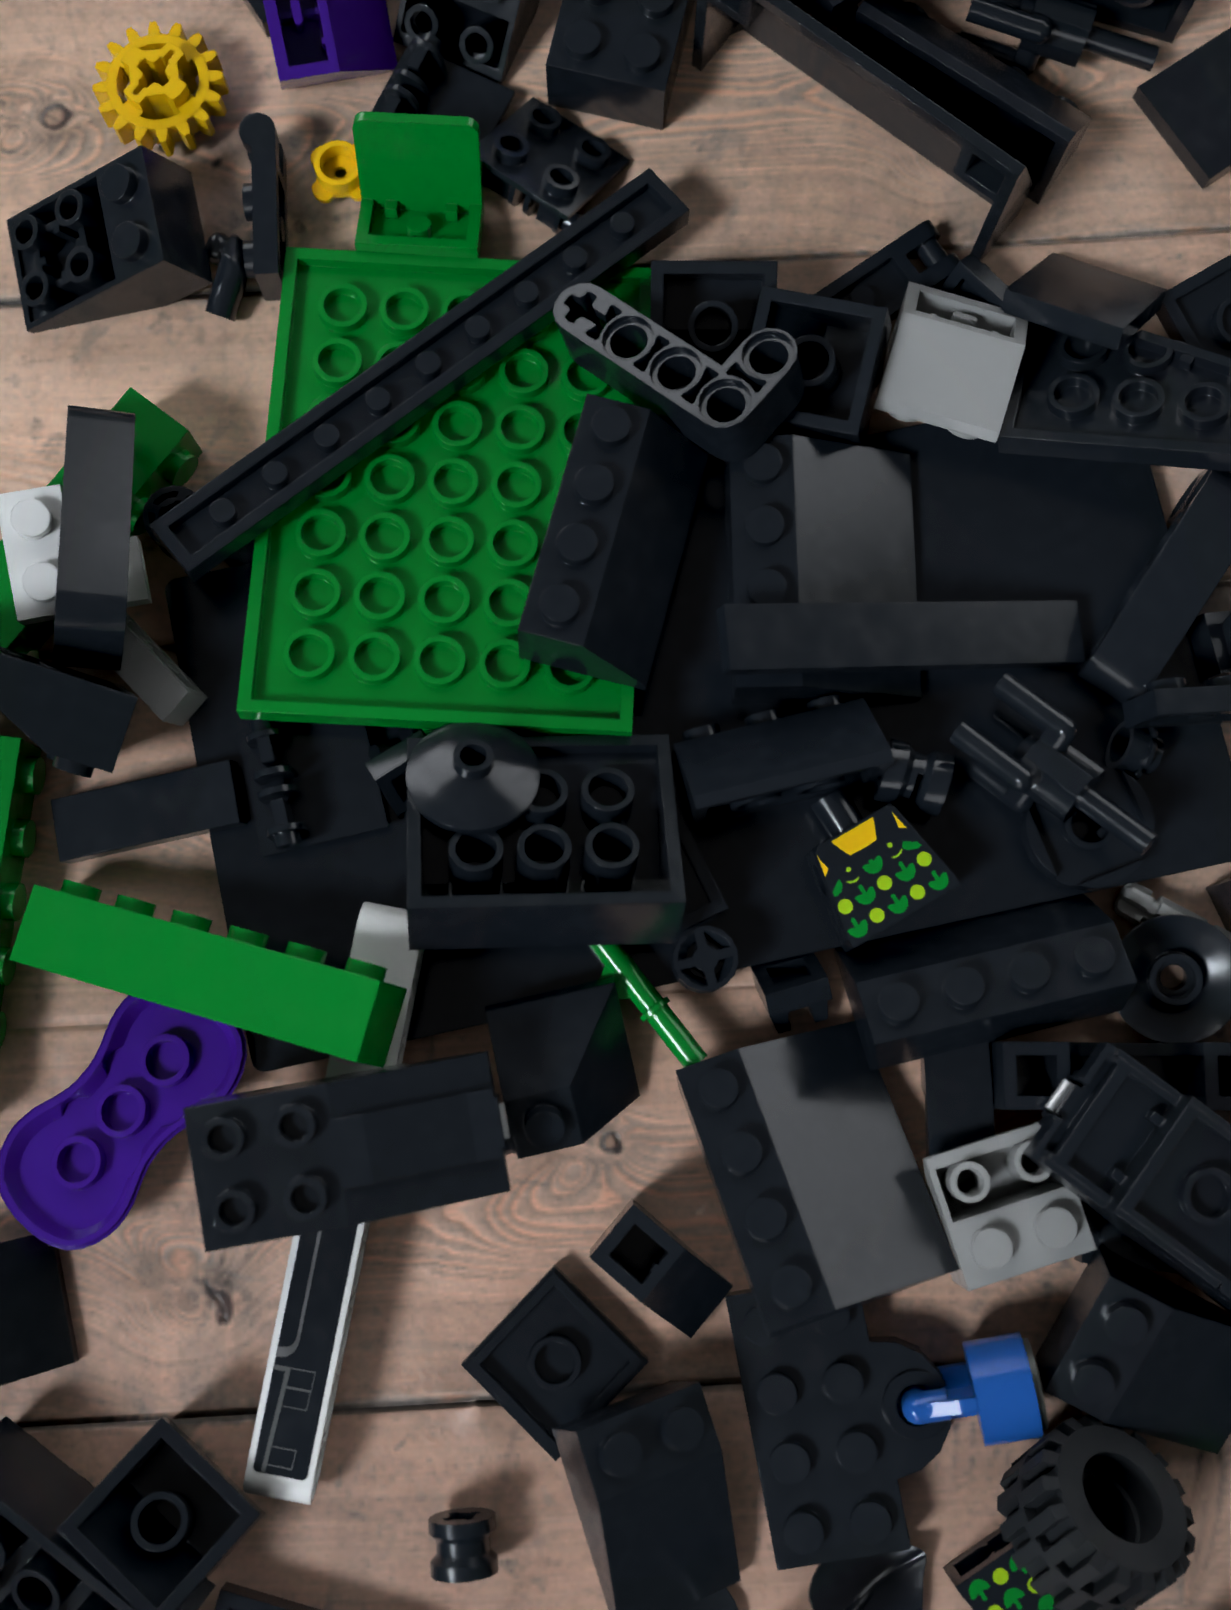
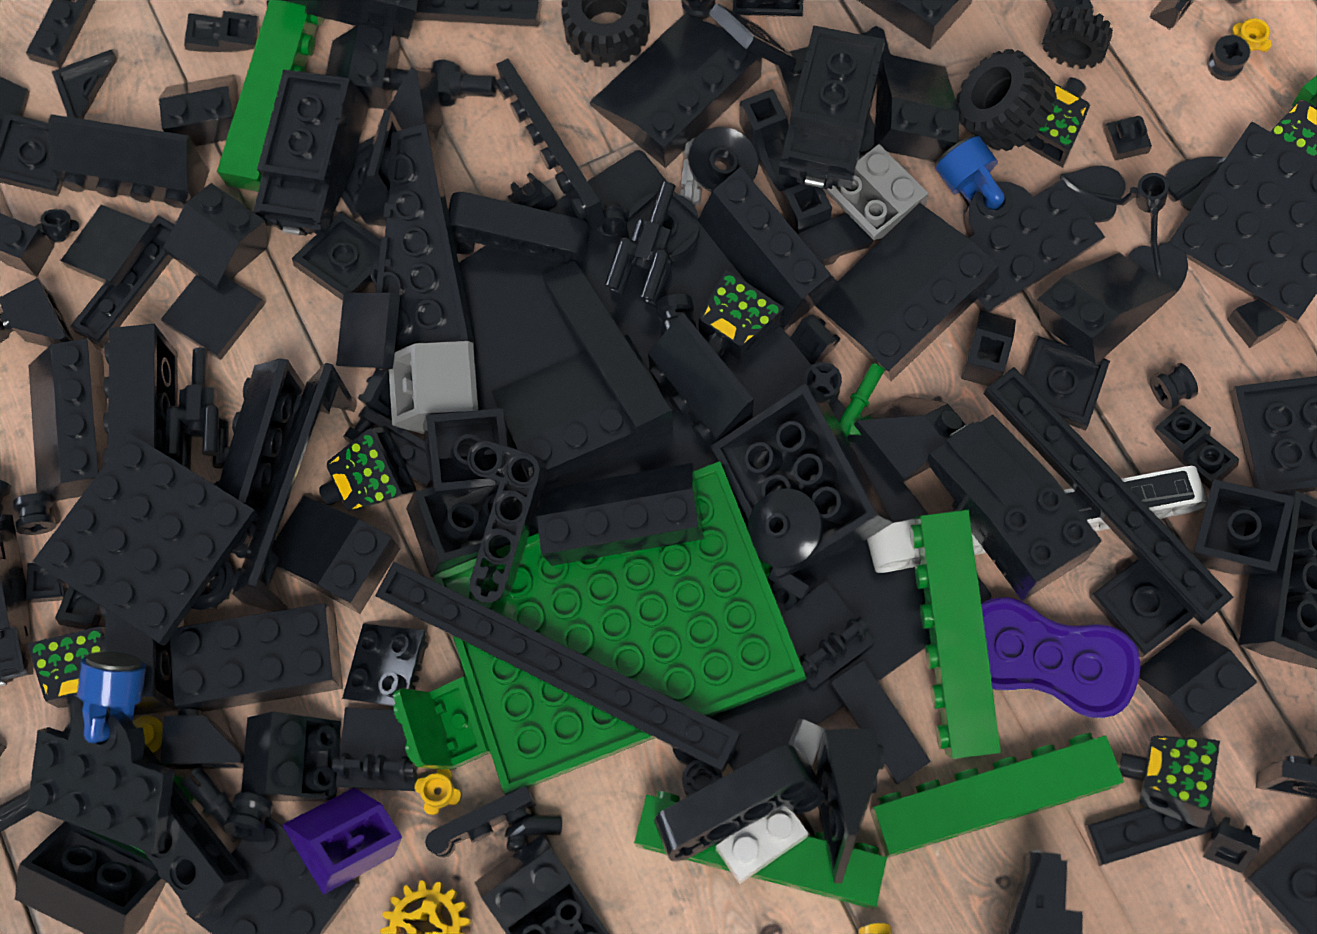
camera: 105 degrees left, 10 degrees down
(143, 1310) = (1141, 607): none -> black tile
(315, 1324) = (1108, 496): none -> black tile
(351, 1528) = (1193, 446): none -> black slope
(747, 146) = (334, 552): none -> black slope
(845, 227) = (367, 472): none -> black torso

